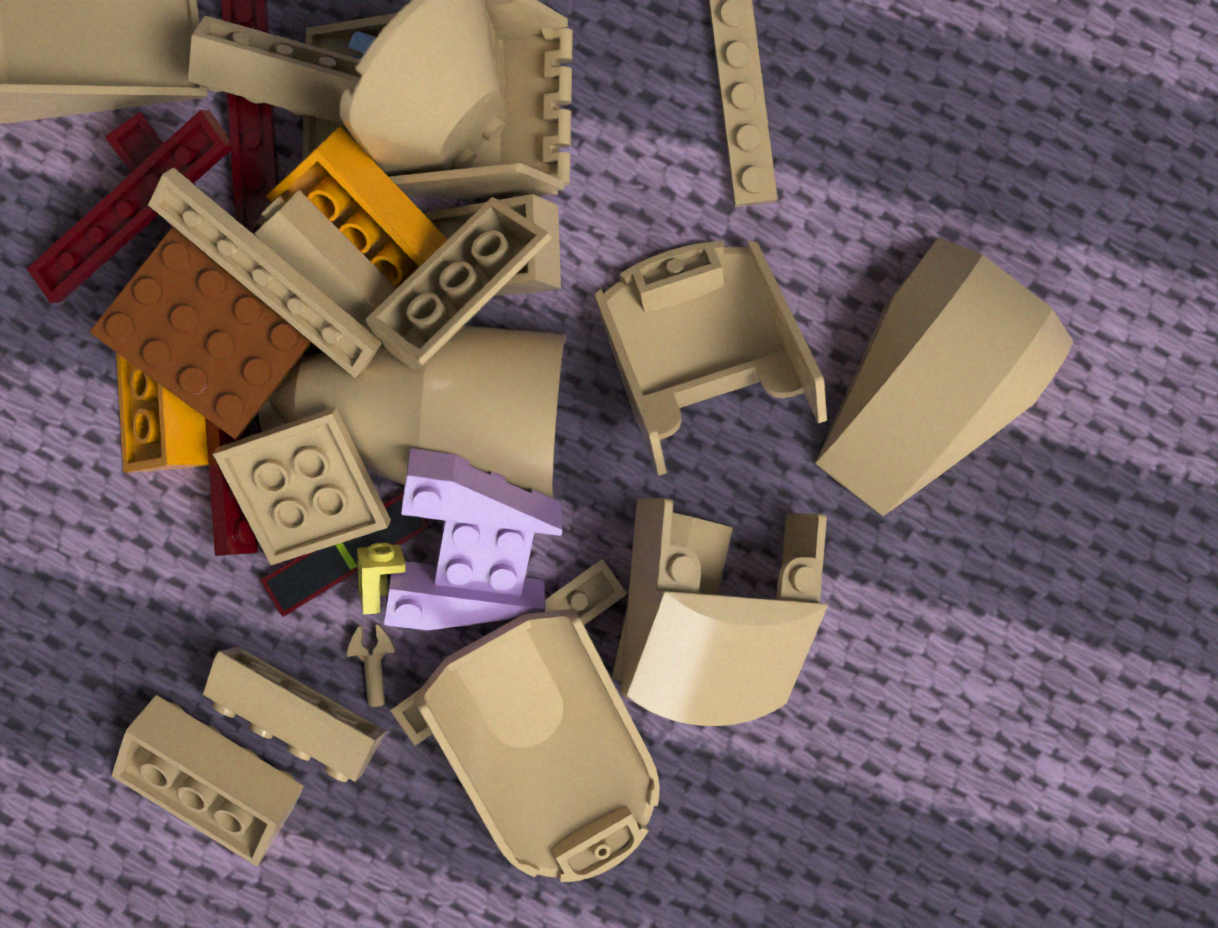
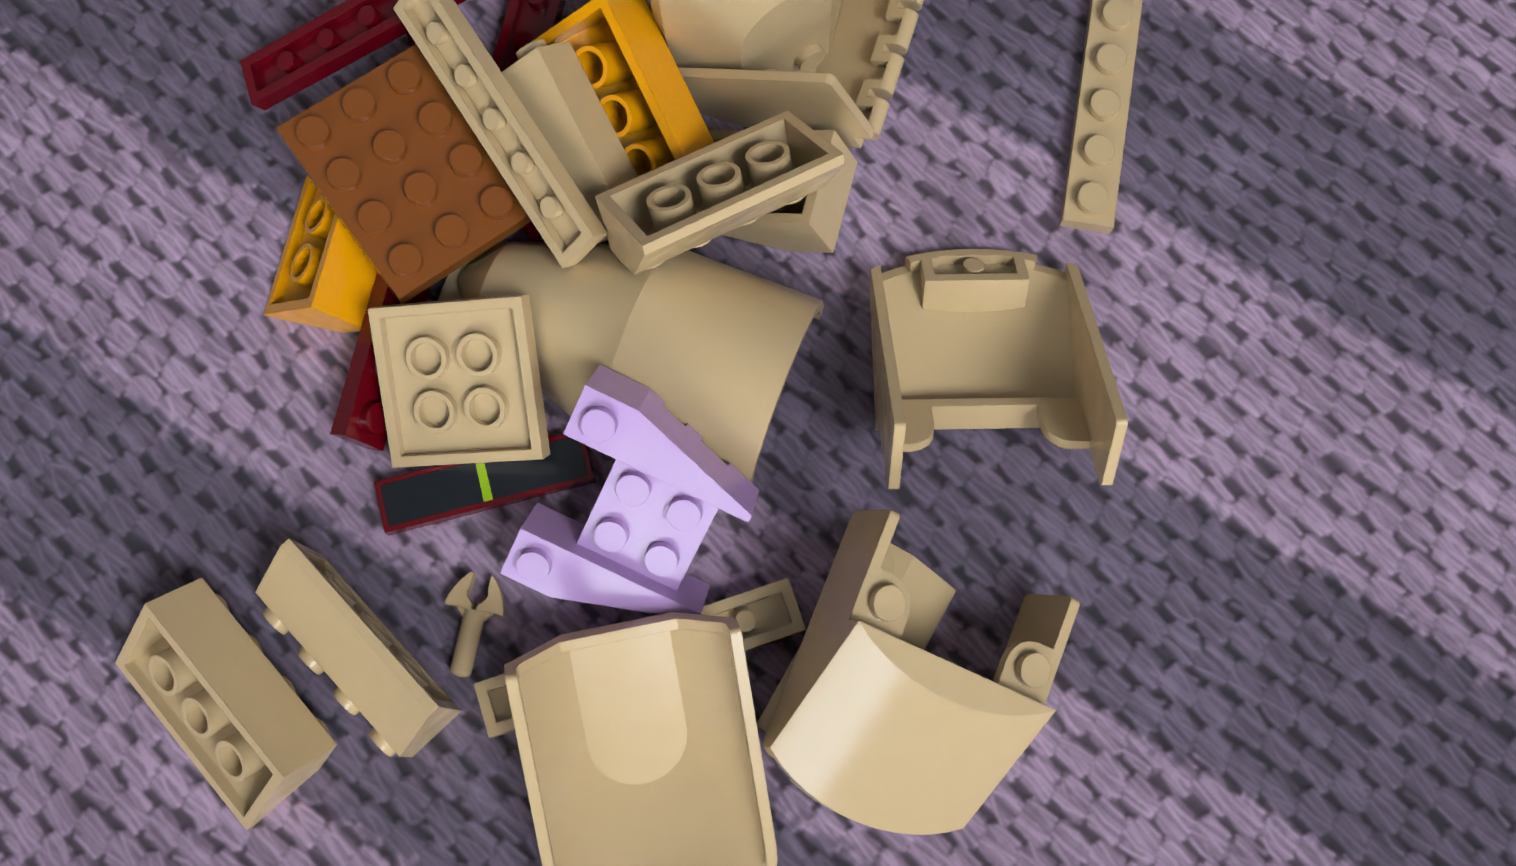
camera: 15 degrees right, 10 degrees down
(373, 567) = (510, 503): light yellow bracket -> none
(940, 375) = (1259, 480): tan windscreen -> none

